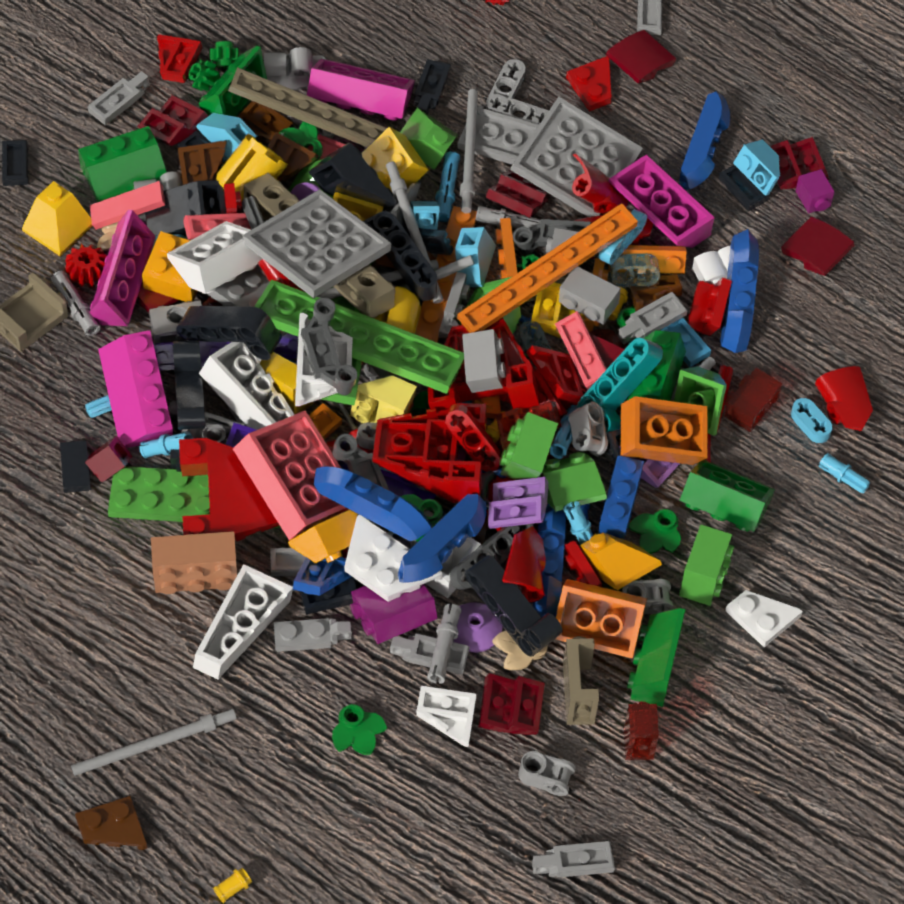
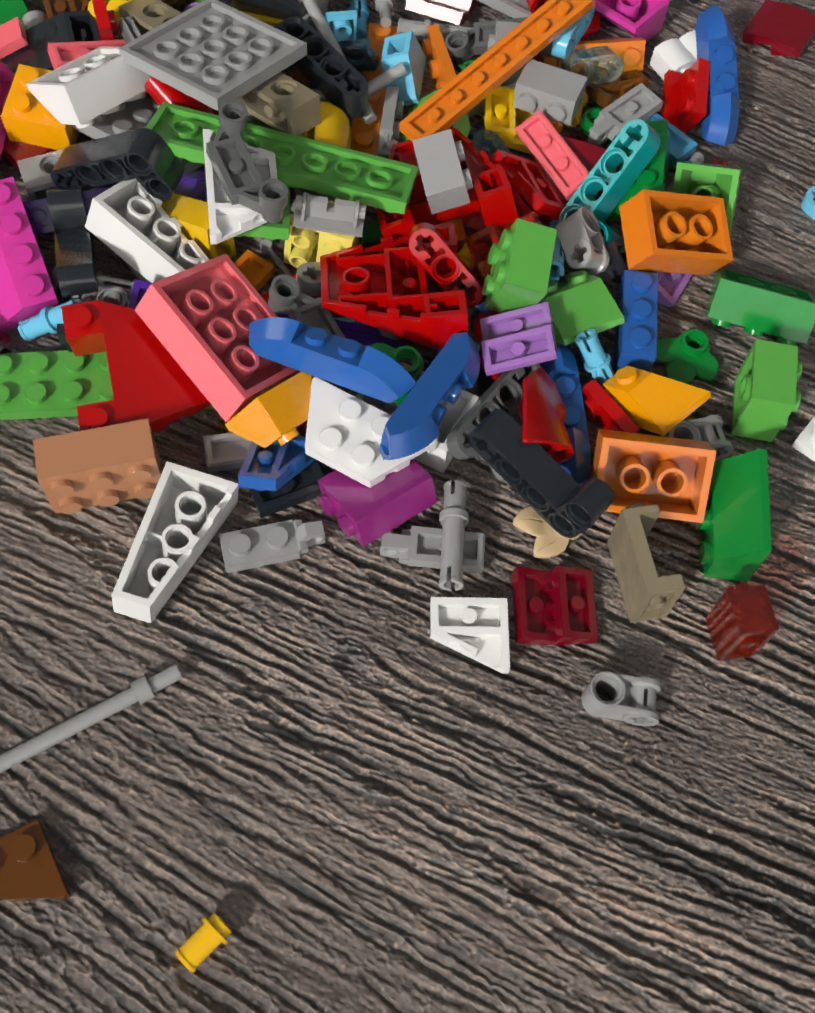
camera: 10 degrees left, 5 degrees up
(359, 733) = (356, 676): green plate -> none
(387, 390) = (340, 218): none -> light grey hinge
(478, 636) = (494, 518): medium lavender dish -> none
(575, 860) = (692, 823): light grey hinge -> none
(752, 399) = (760, 192): clear red brick -> none

